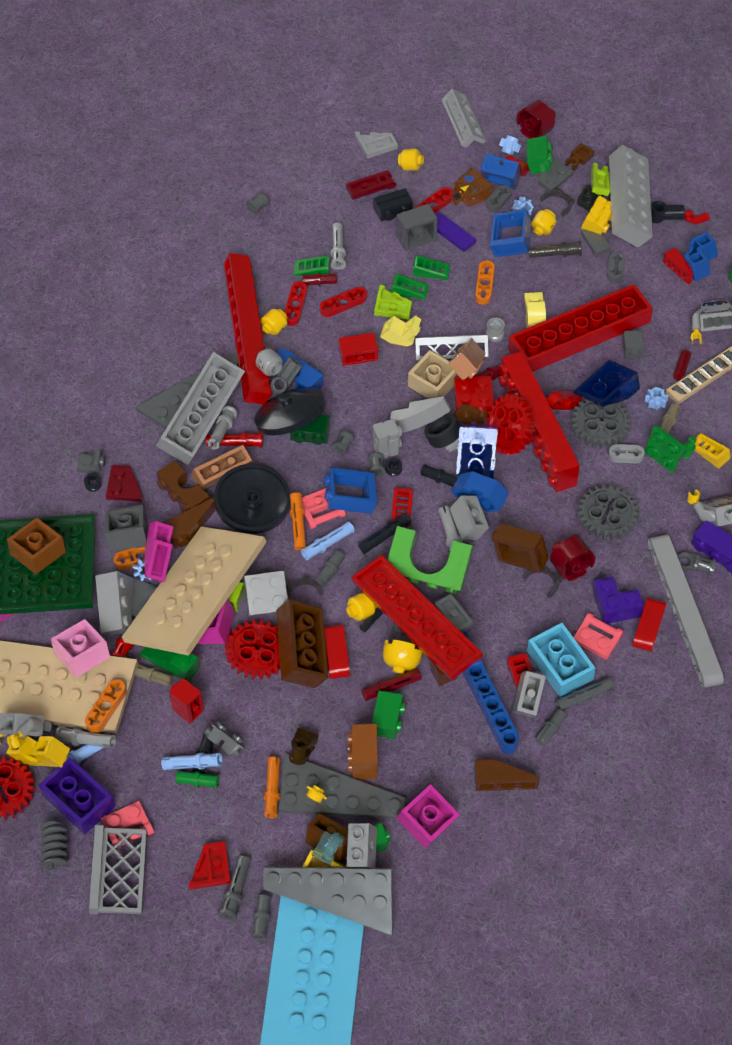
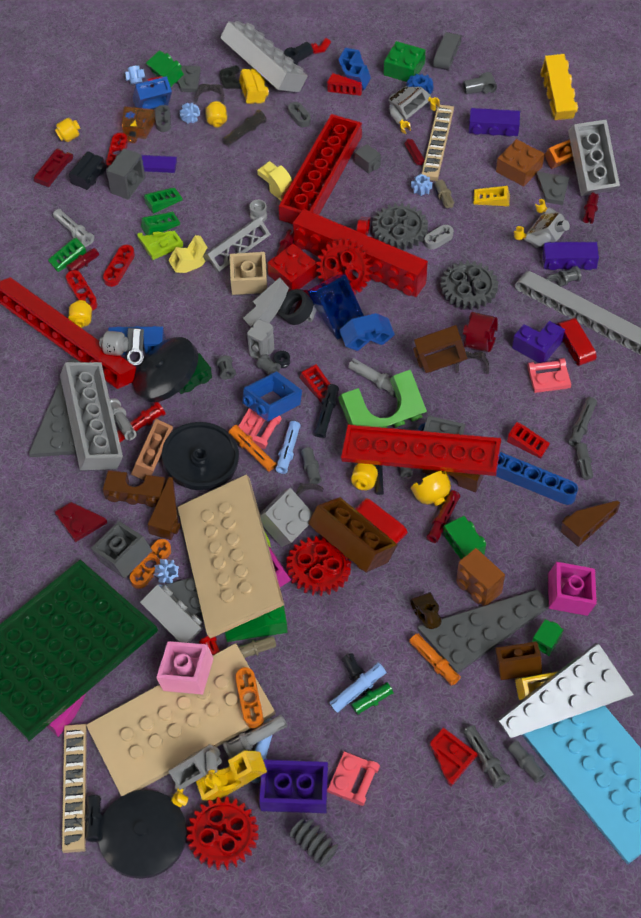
camera: 40 degrees left, 0 degrees up
(36, 545) = (64, 615): dark orange brick -> none
(91, 462) = (34, 522): dark grey bracket -> none
(91, 477) = (51, 530): black bush -> none
(98, 870) = (368, 828): light grey fence -> none
(158, 550) = (168, 546): dark pink slope -> none
(186, 700) = (306, 644): red brick -> none
(219, 732) = (356, 650): dark grey hinge -> none
(316, 793) = (477, 636): yellow plate -> none
(327, 846) = (532, 666): clear light blue piece -> none
(358, 349) = (169, 290): red brick -> none
(361, 846) = (555, 646): light grey brick -> none
(376, 143) = (26, 135): light grey wing -> none
(439, 476) = (323, 342): black pin -> none
(463, 118) = (76, 78): light grey fence -> none
(467, 359) = (266, 242): nougat brick -> none
(469, 413) = (303, 281): reddish brown plate -> none
(469, 518) = (379, 355): light grey brick -> none
(481, 277) = (213, 177): orange beam -> none
(515, 245) = (207, 146): blue window -> none
(528, 694) = (550, 447): light grey brick -> none
(536, 119) = (138, 45): dark red brick -> none
(561, 659) = (546, 408): medium azure brick -> none
(580, 154) = (194, 53): reddish brown plate -> none
(596, 242) = (267, 106): dark grey tile -> none
(600, 180) = (228, 59): lime hinge -> none
(609, 384) = (384, 193): clear blue slope -> none
(667, 449) = (467, 212): green plate -> none

